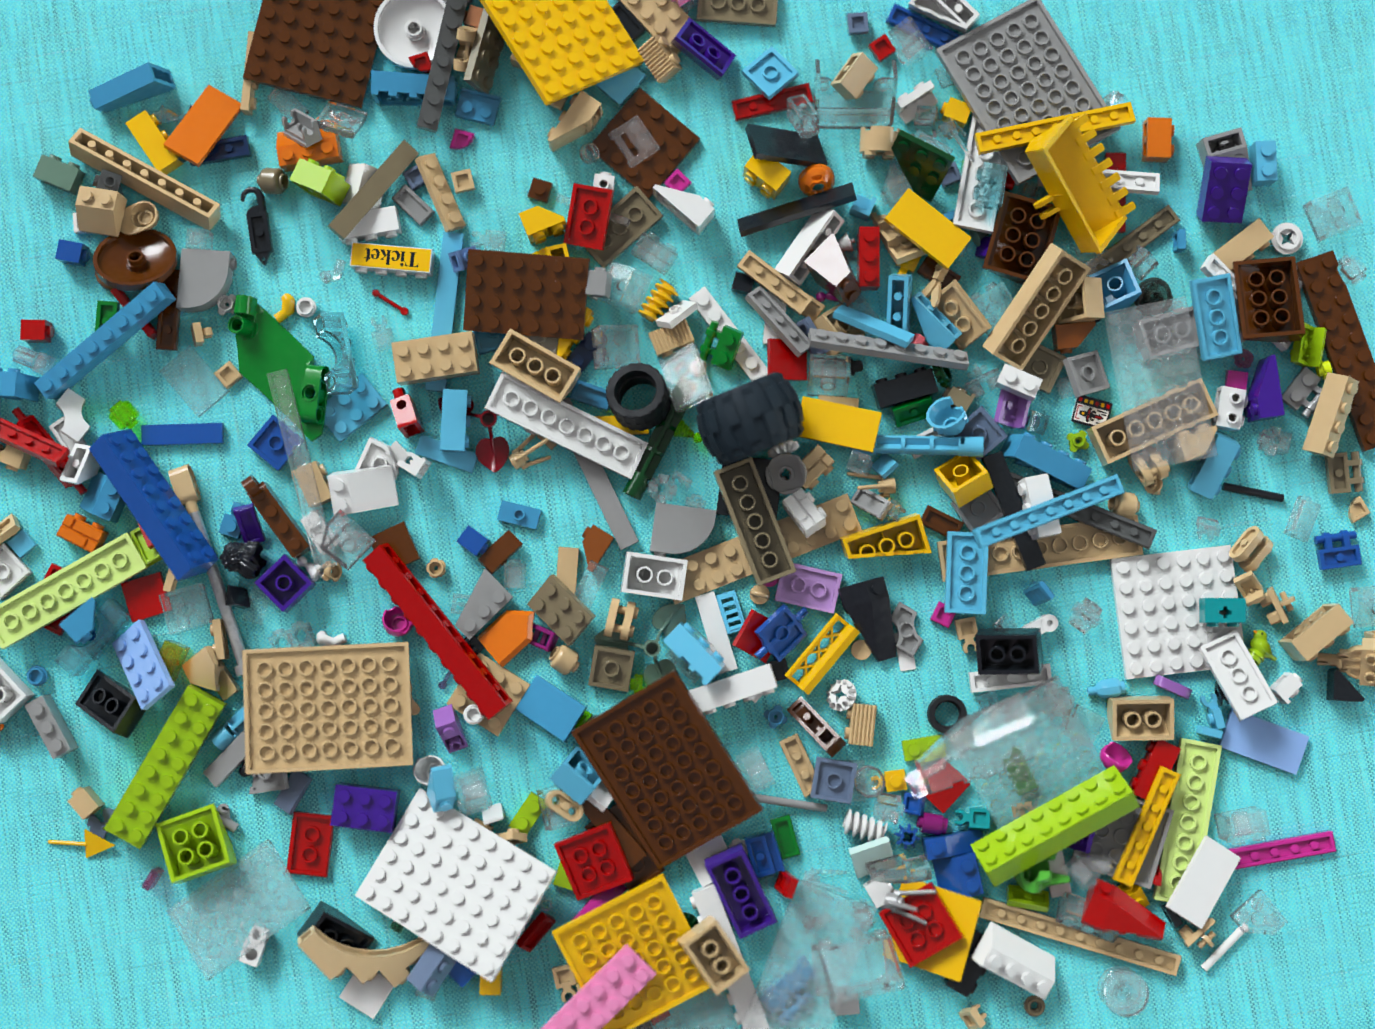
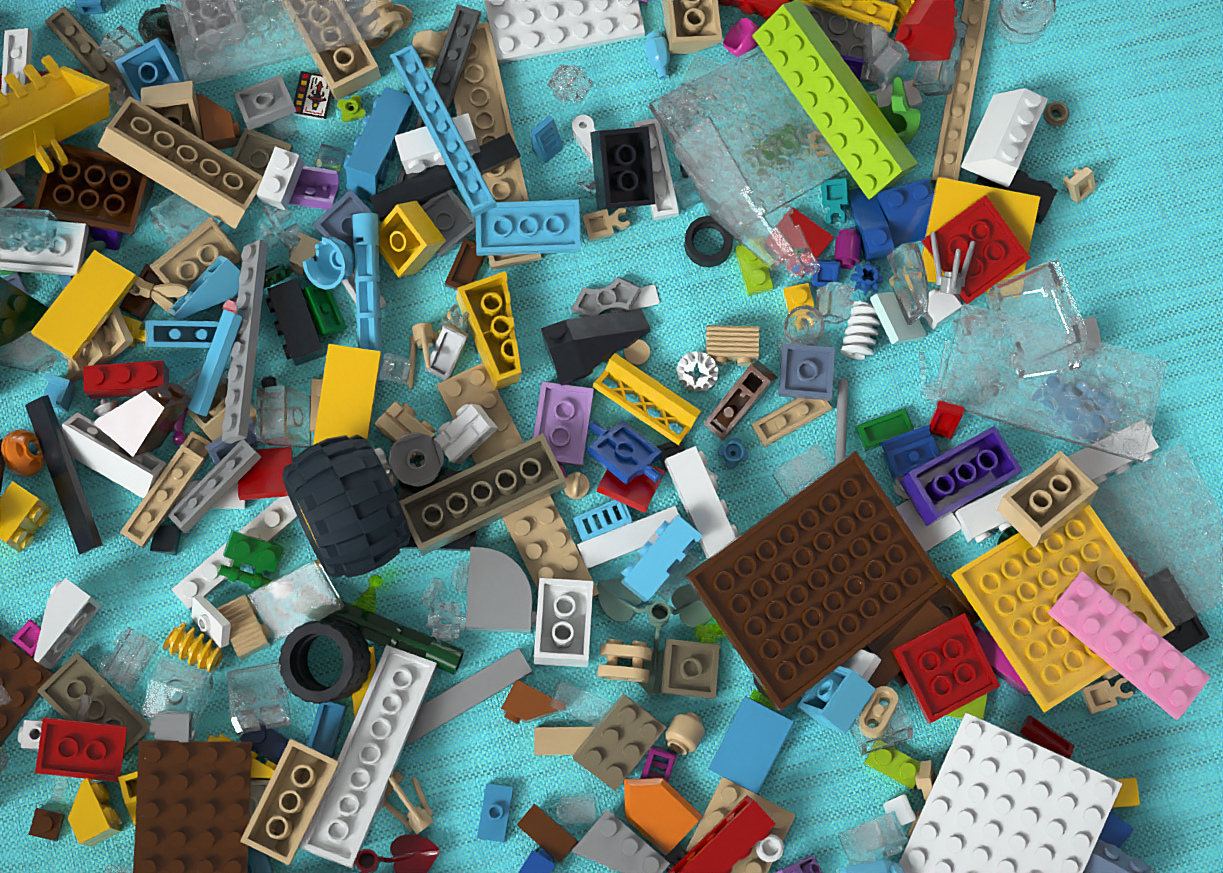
camera: 95 degrees left, 10 degrees down
(884, 466) = (397, 339): medium azure tile -> none
(940, 617) = (586, 258): dark pink tile -> none
(1022, 899) = (927, 136): lime plate -> none

